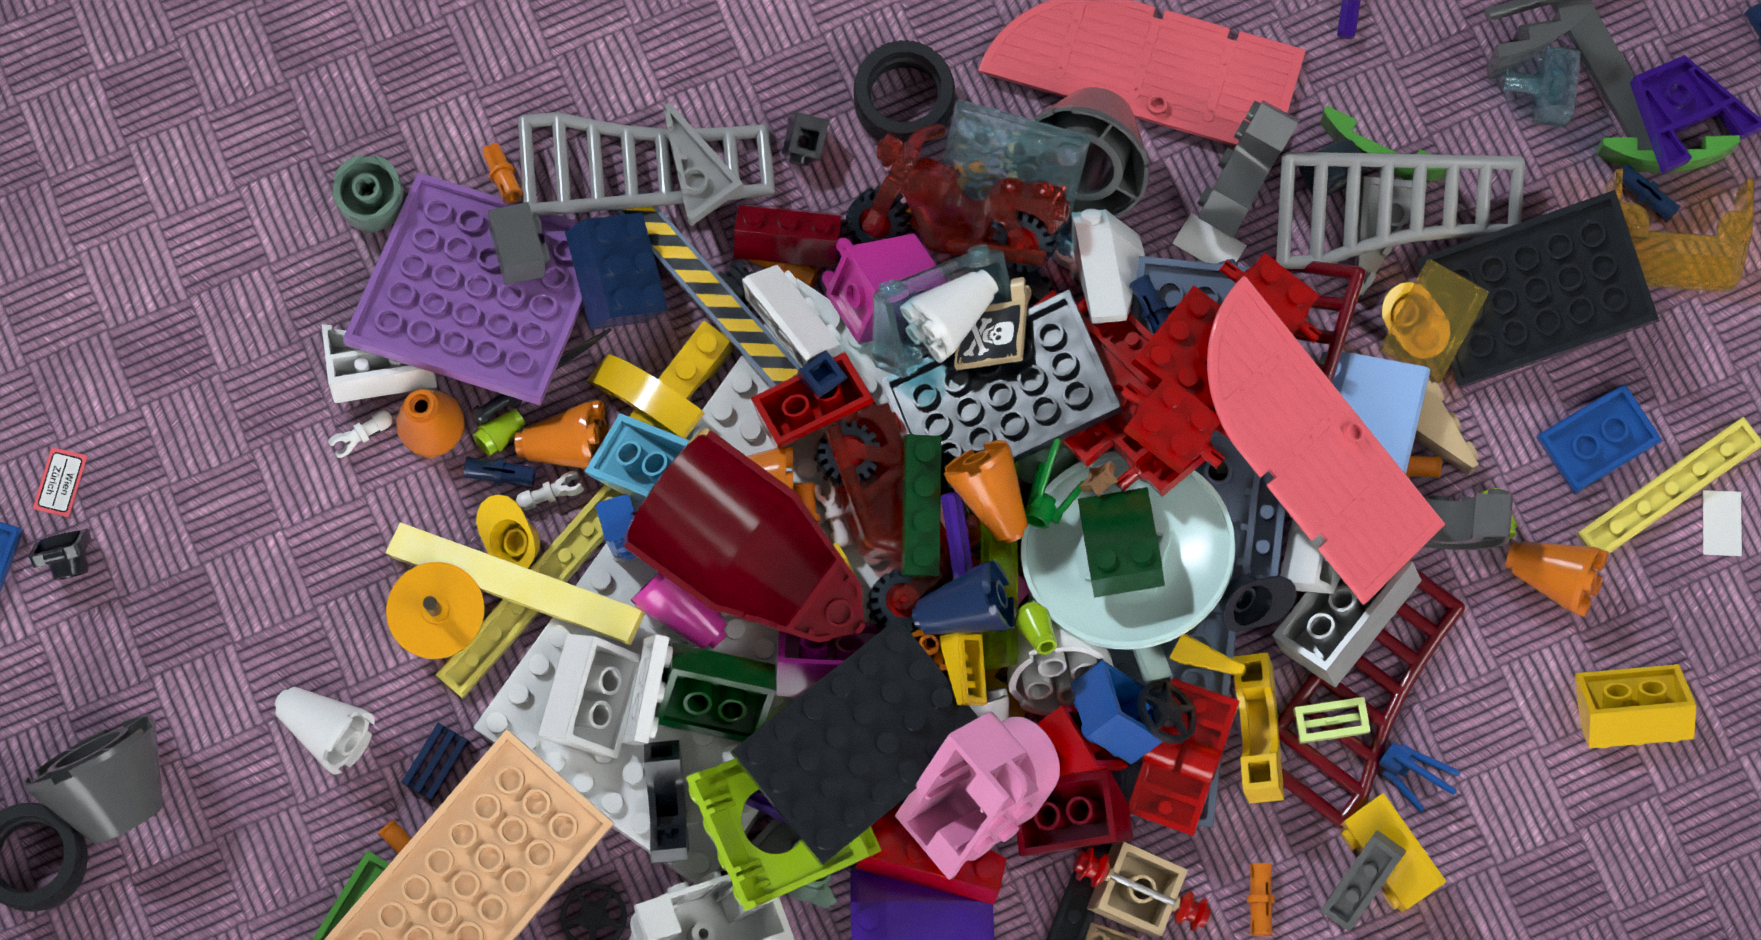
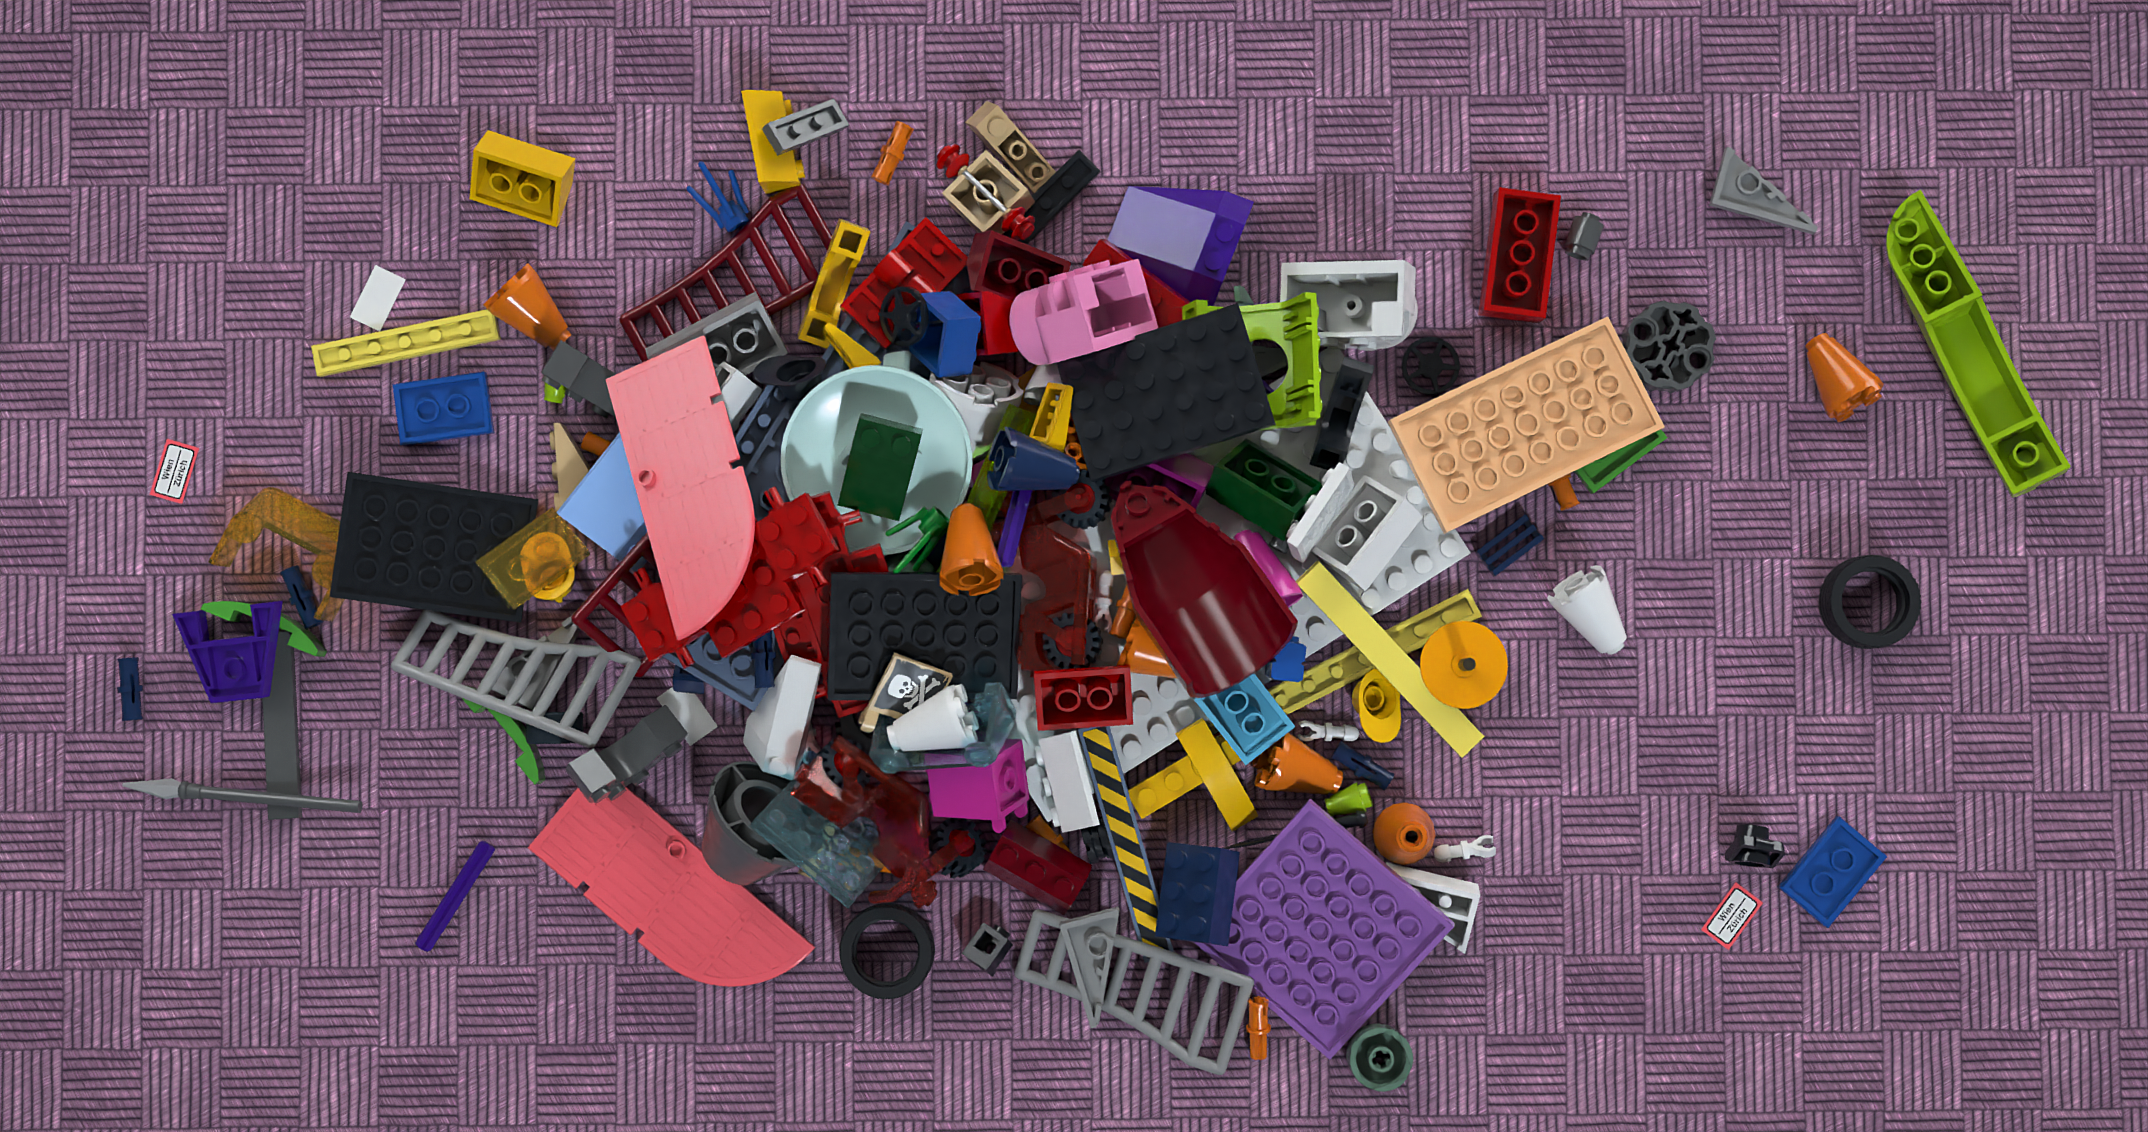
camera: 160 degrees left, 10 degrees up
(104, 781) = (1791, 637): dark grey cone -> none
(517, 243) = (1272, 952): dark grey brick -> none
(821, 374) = (1066, 715): dark blue slope -> none
(921, 506) = (1031, 567): dark green plate -> none
(1036, 625) = (981, 422): lime cone -> none
(1099, 479) = (873, 528): medium nougat piece -> none
(1302, 725) = (744, 262): yellowish green tile -> none
(1533, 39) = (327, 767): dark grey slope -> none
(1551, 87) = (337, 720): clear light blue brick -> none

